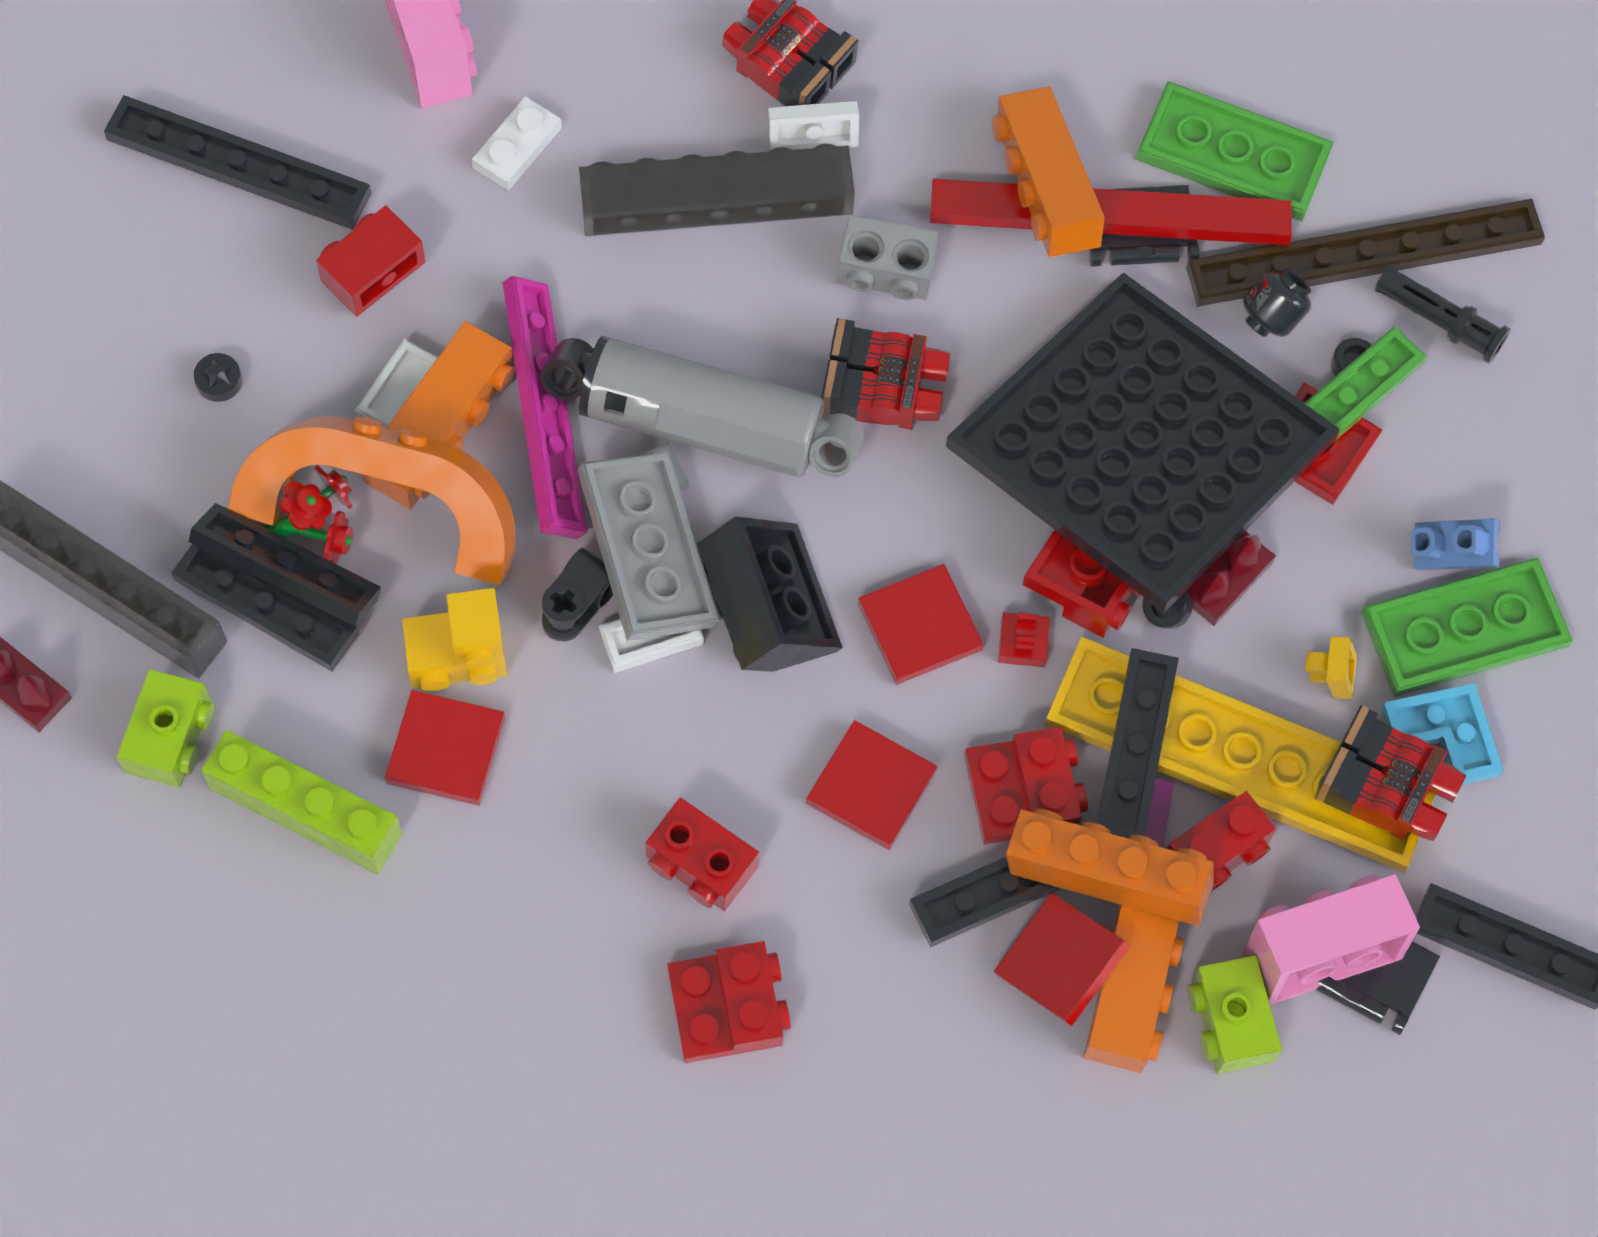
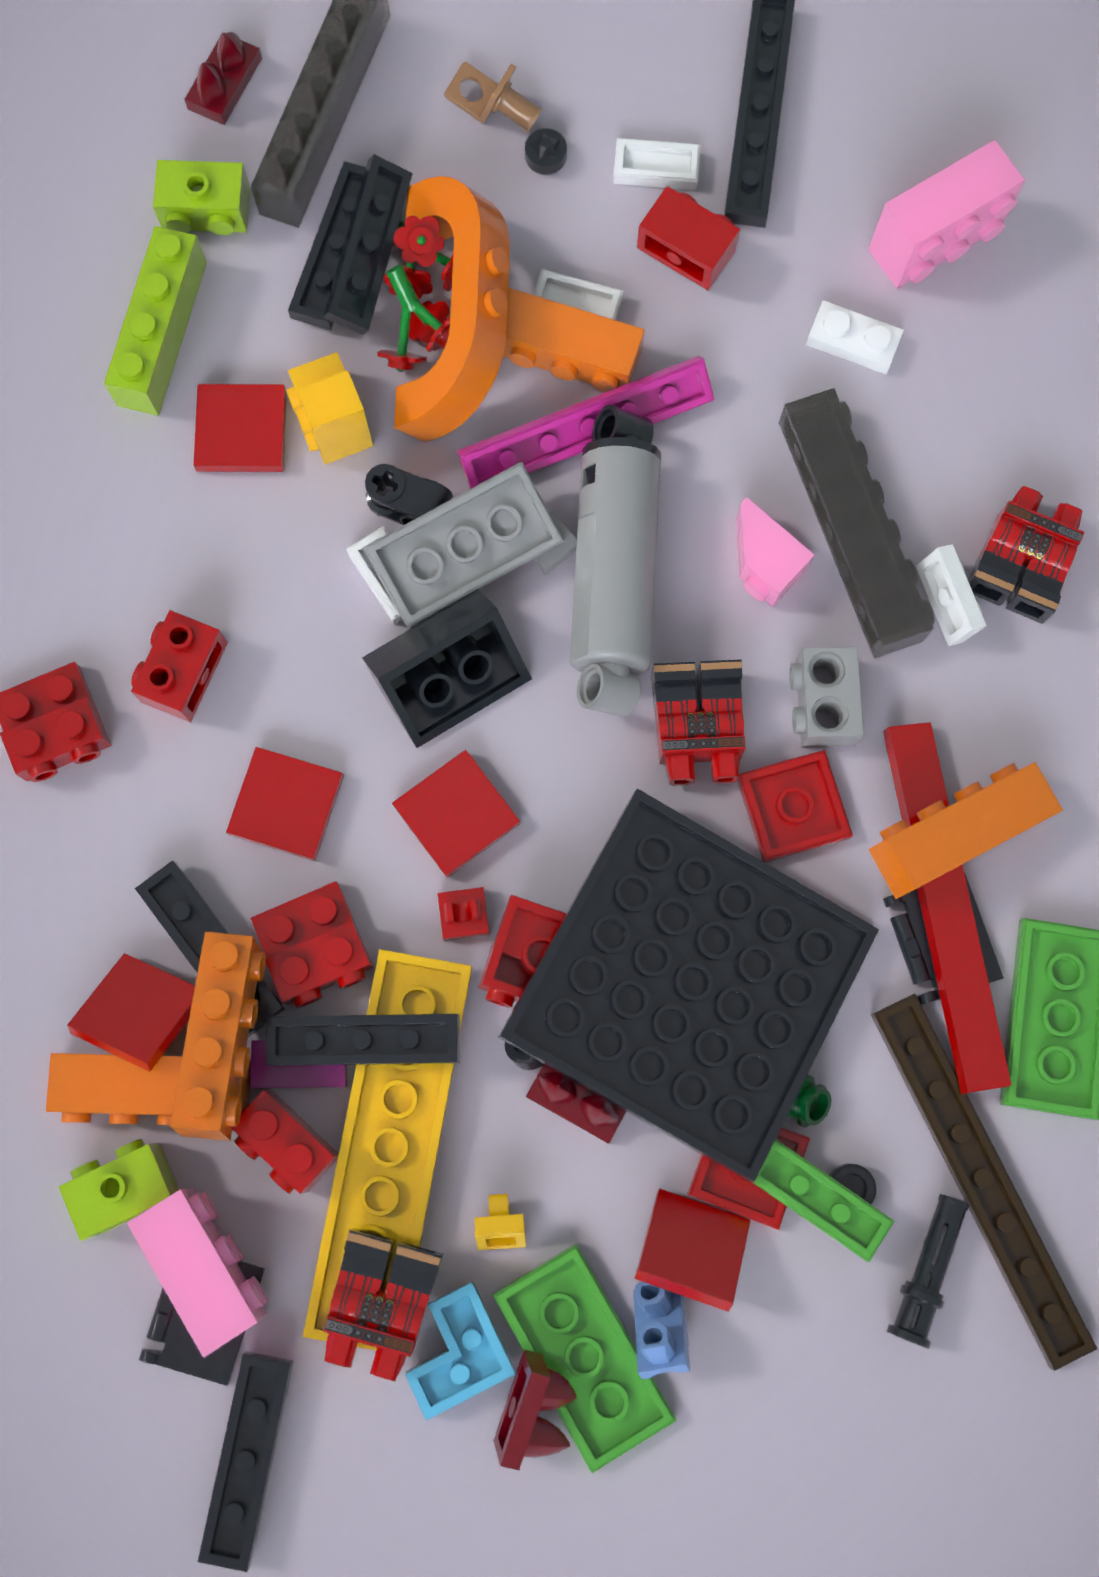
camera: 80 degrees right, 10 degrees up
(141, 410) = (494, 97): none -> medium nougat bracket
(266, 276) = (656, 164): none -> white tile
(382, 534) = (426, 323): none -> plant
(728, 275) = (767, 554): none -> bright pink slope
(985, 318) = (794, 806): none -> red tile
(1275, 369) = (811, 1103): none -> dark green plate
(1277, 303) = (887, 1092): black head -> none
(1388, 500) = (693, 1250): none -> red tile
(1517, 686) = (520, 1429): none -> dark red tile

